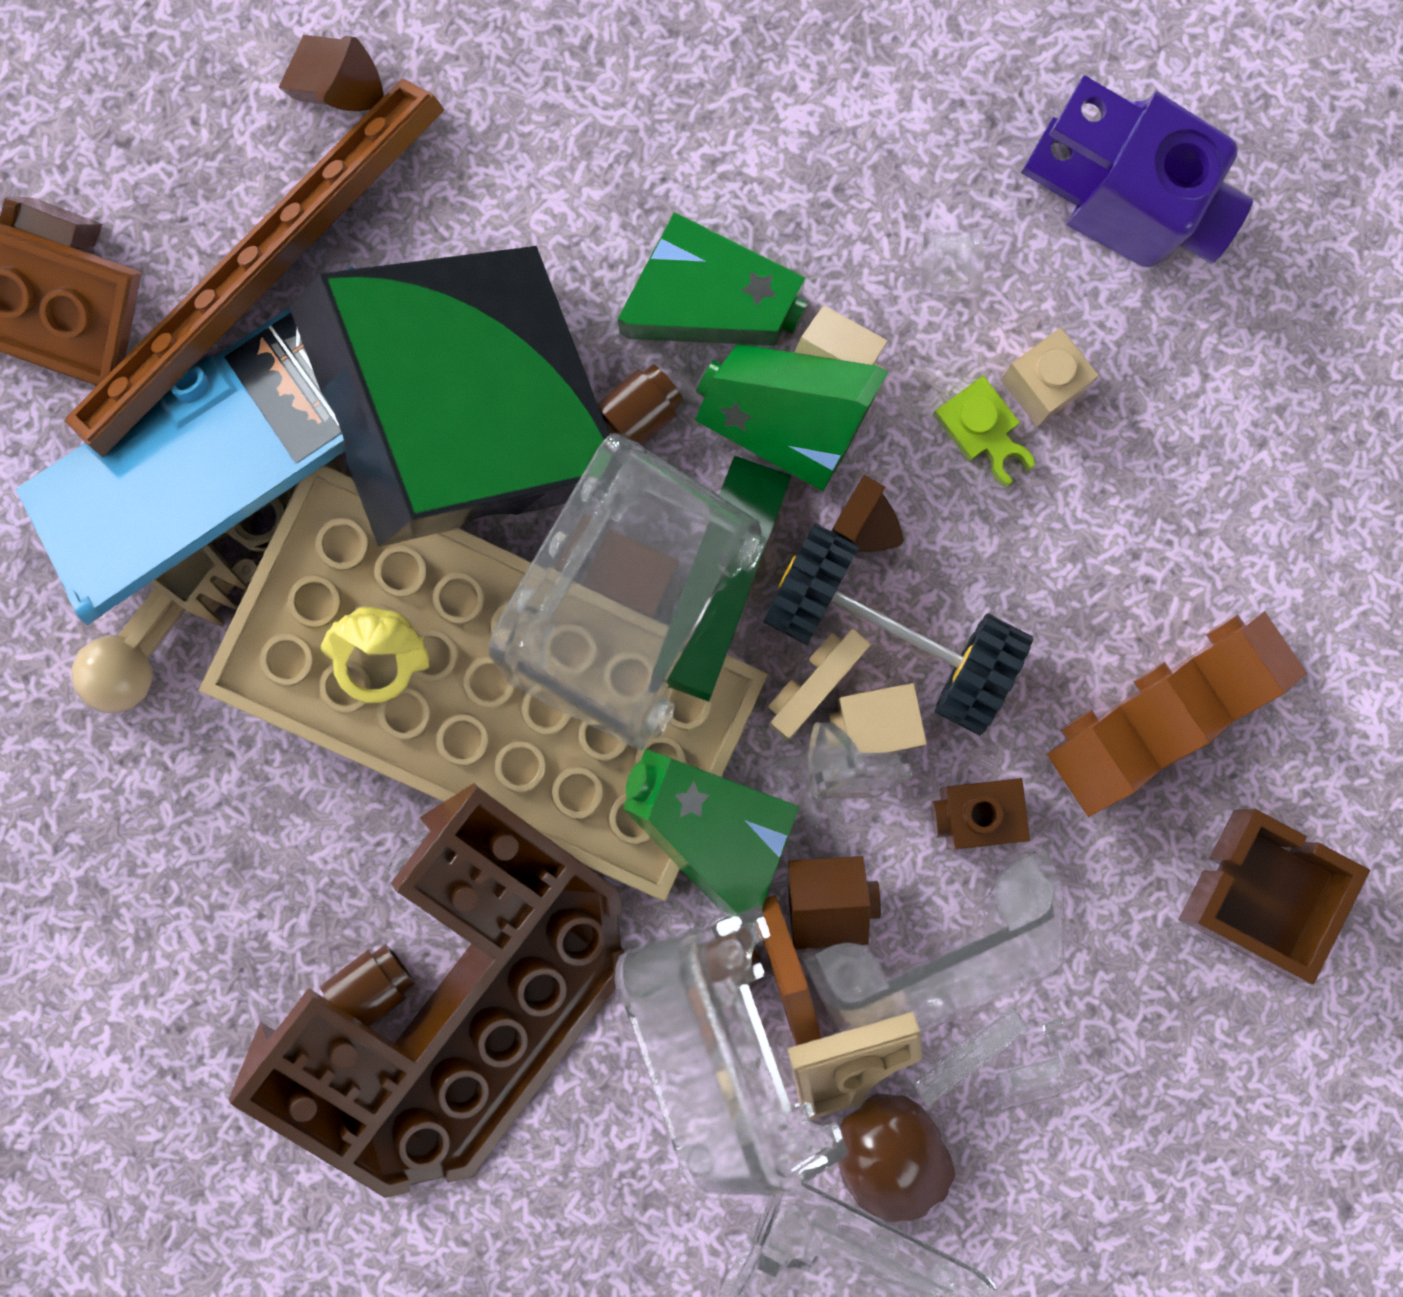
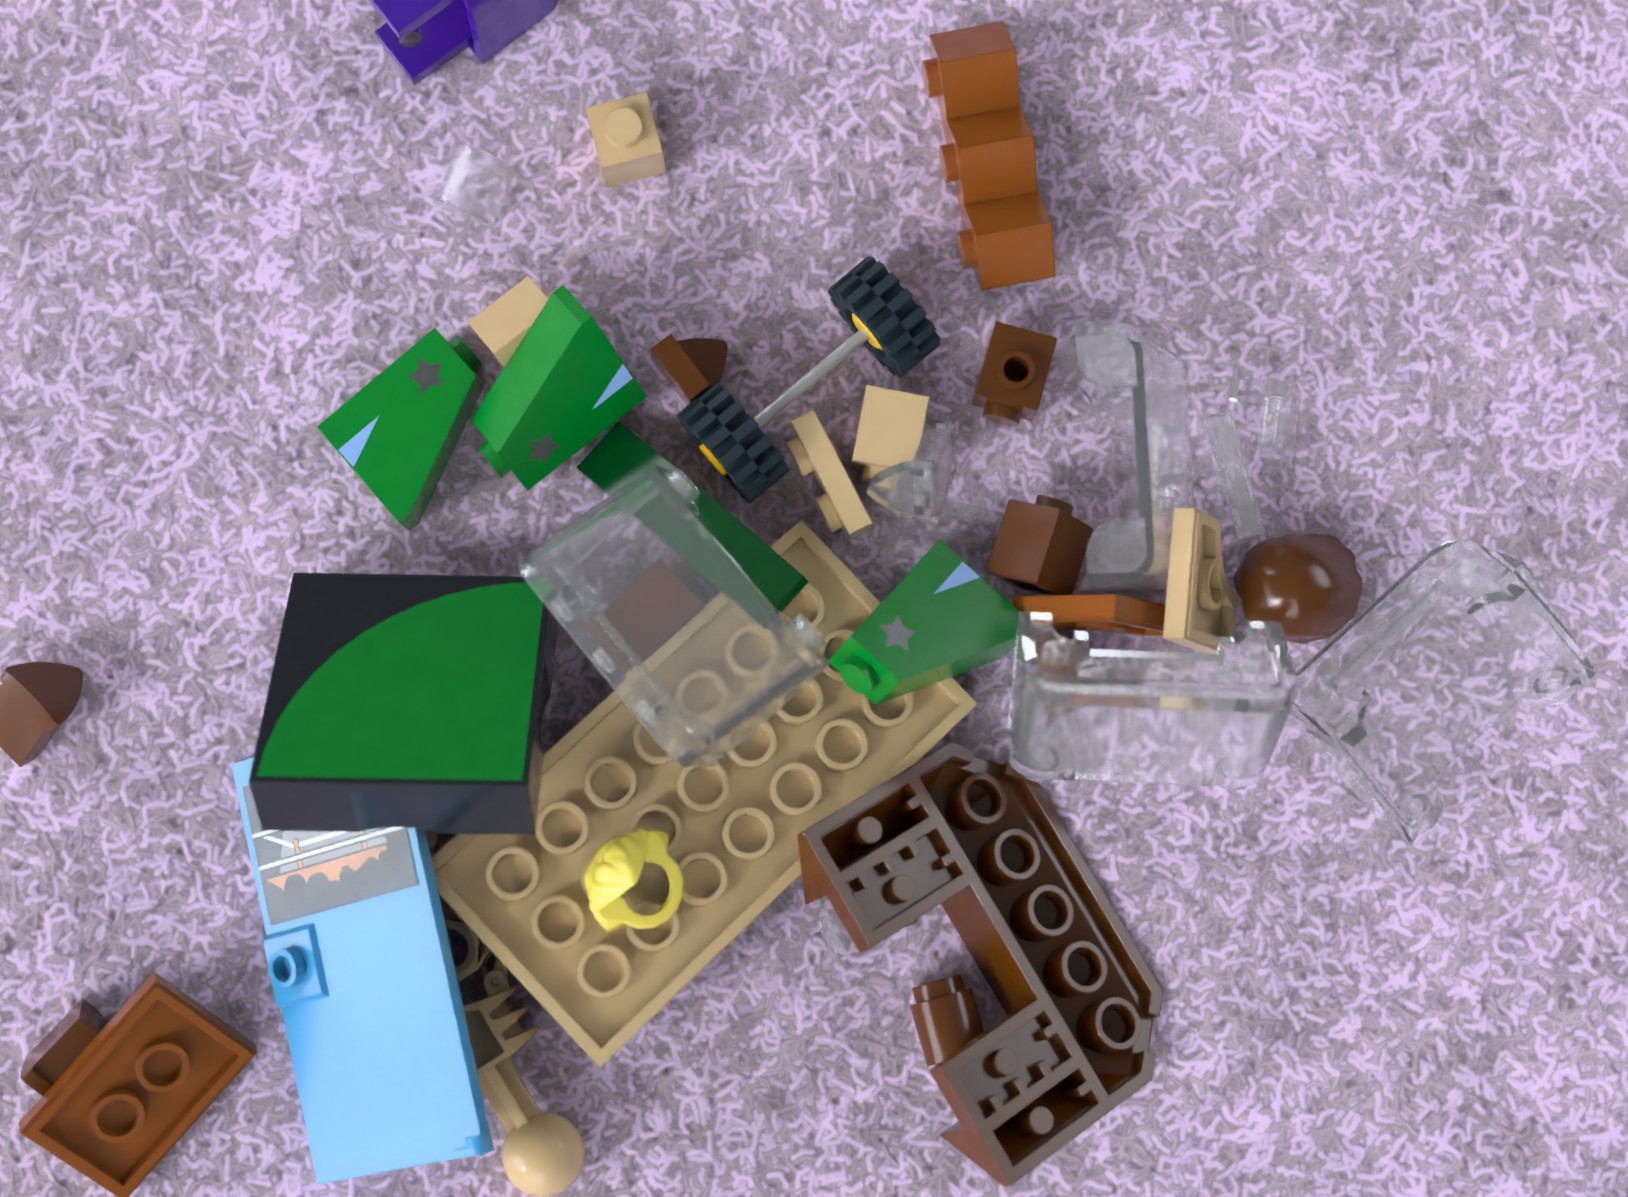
camera: 70 degrees left, 0 degrees up
(253, 266) = (193, 860): dark orange tile -> none
(641, 405) = (491, 536): reddish brown brick -> none
(980, 423) = (641, 224): lime plate -> none
(1272, 900) = (1199, 140): reddish brown piece -> none

